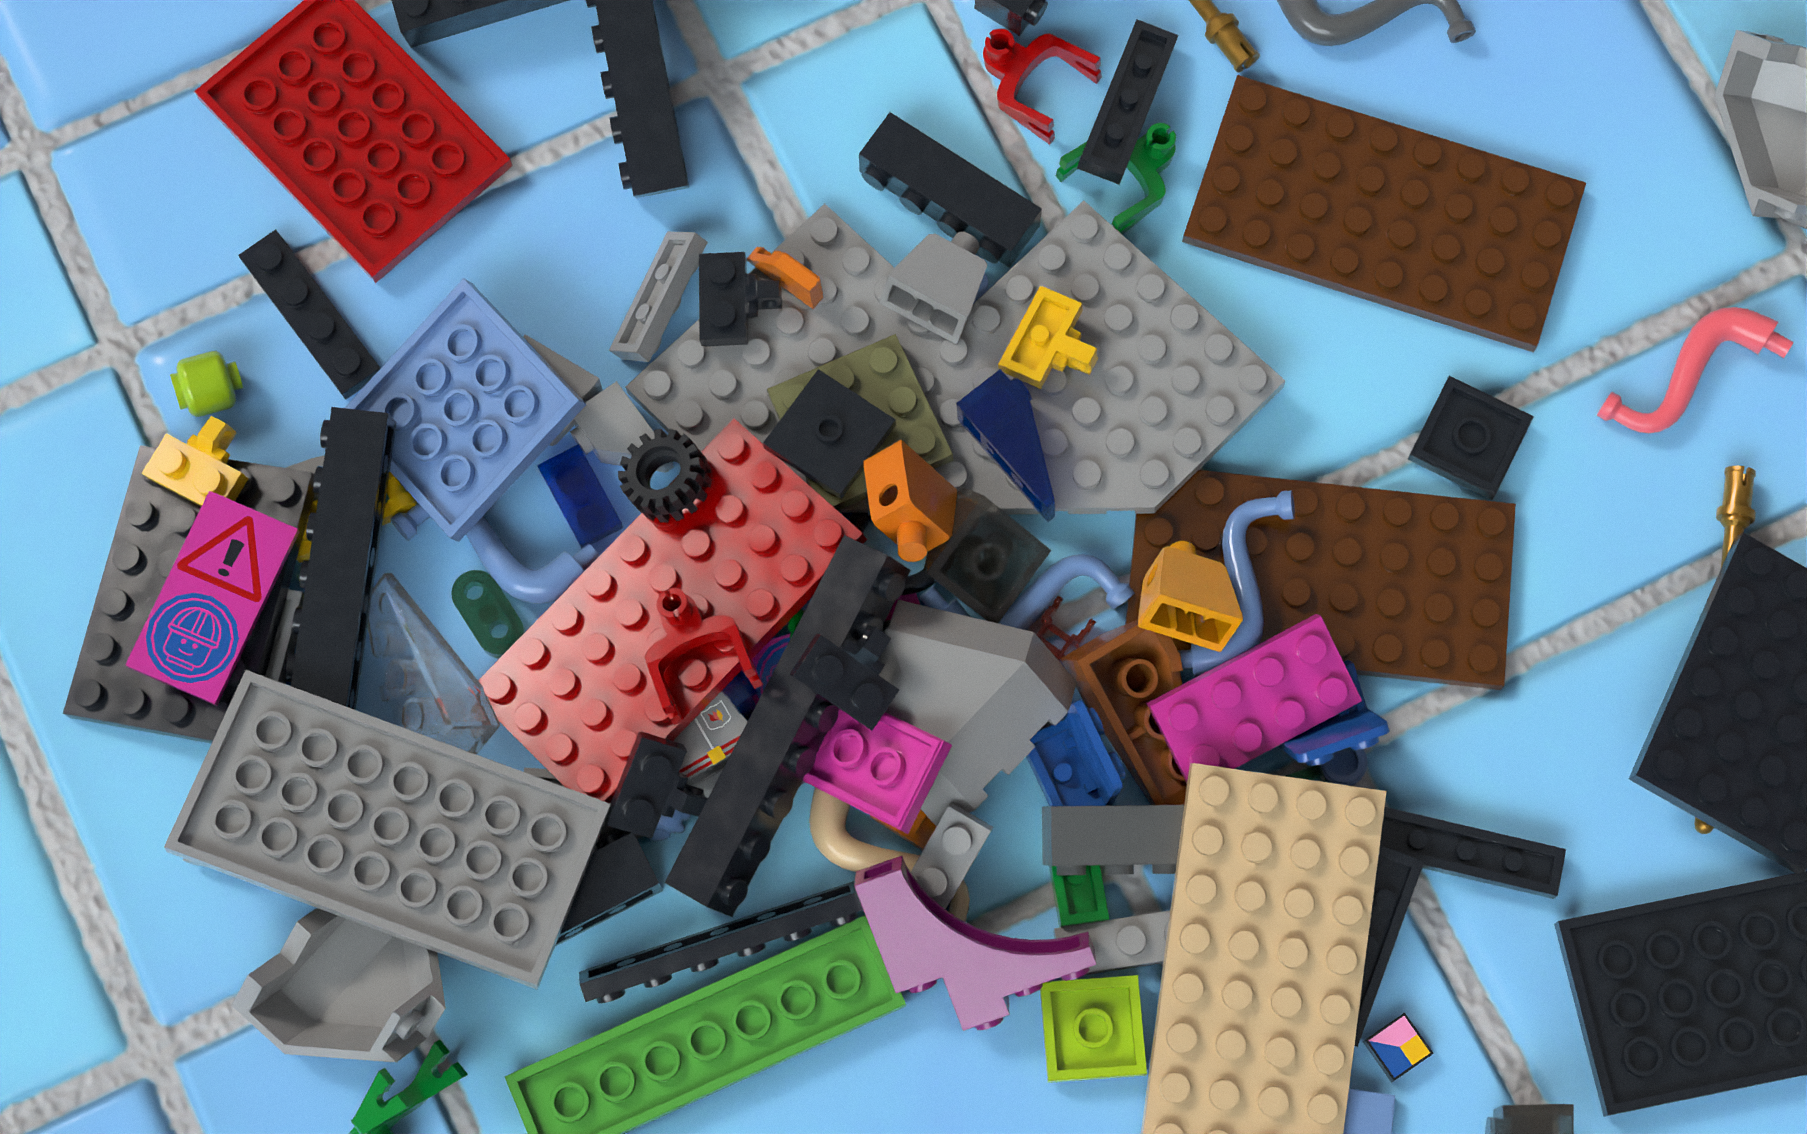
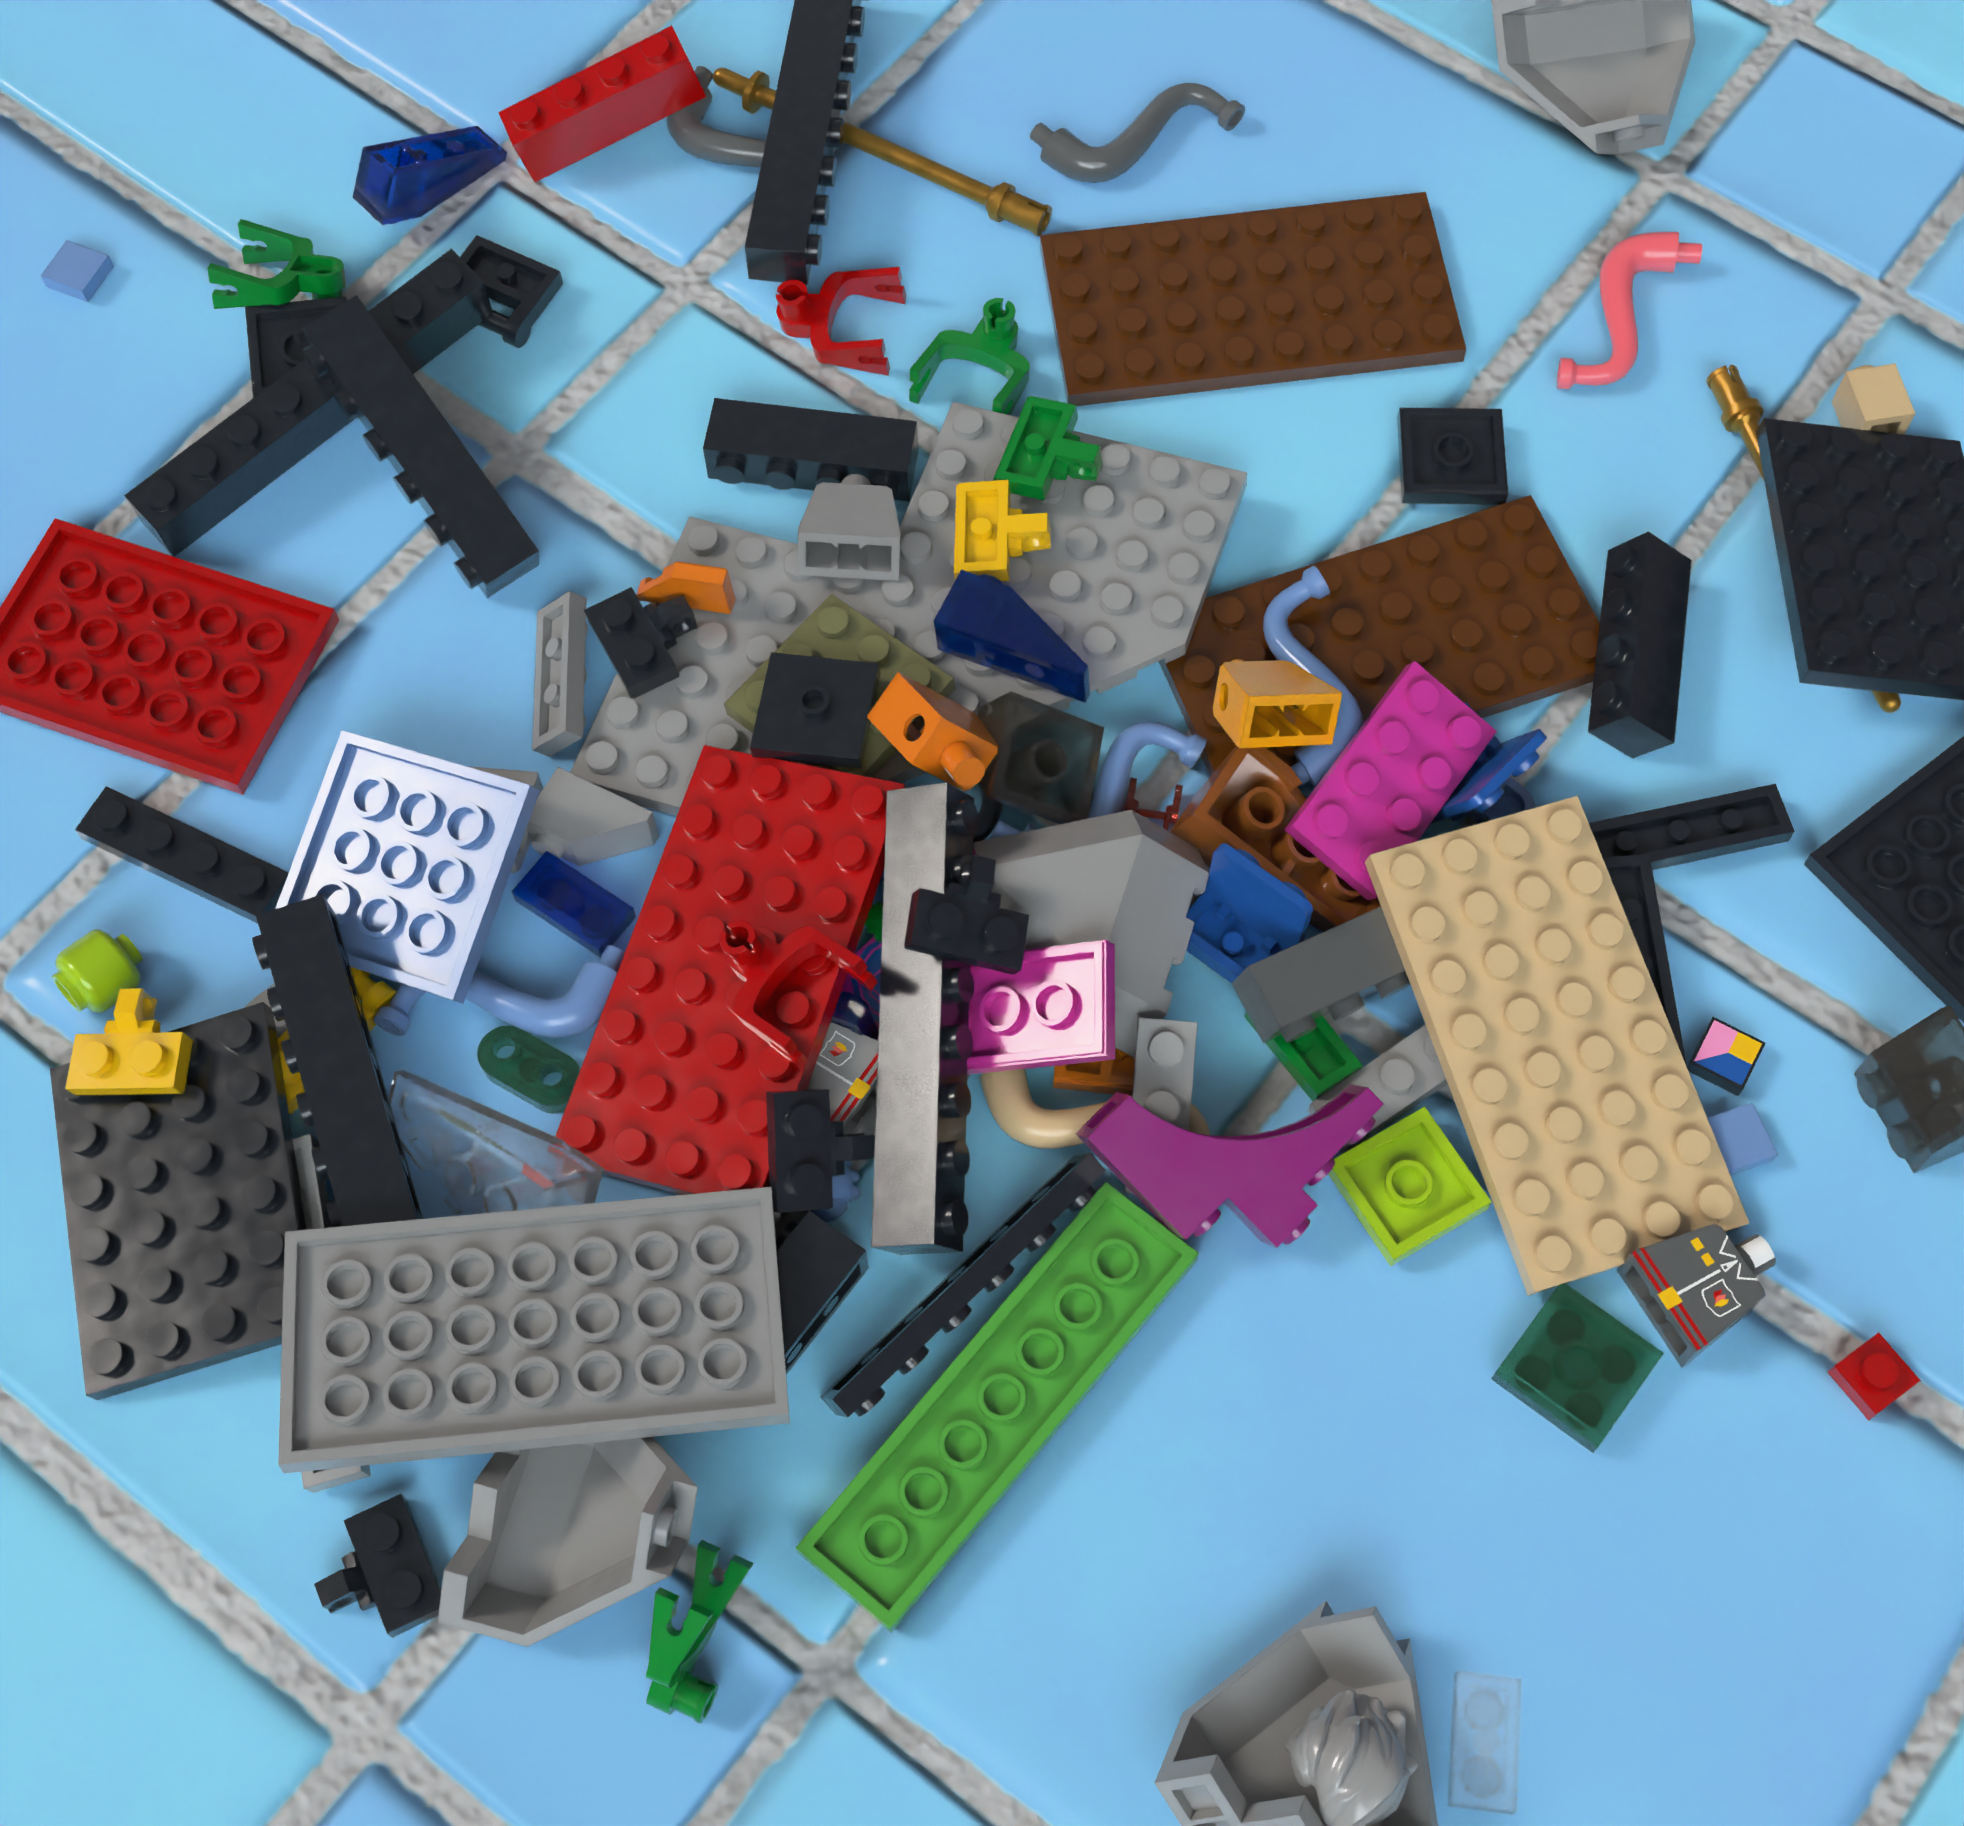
camera: 25 degrees left, 10 degrees down
(212, 598) = (209, 1178): dark pink tile -> none
(215, 945) = (385, 1569): none -> black hinge
(648, 459) = (678, 845): black tyre -> none
(1127, 102) = (948, 297): black plate -> none
(1127, 287) = (1046, 449): none -> green hinge
(1524, 680) = (1640, 646): none -> black brick

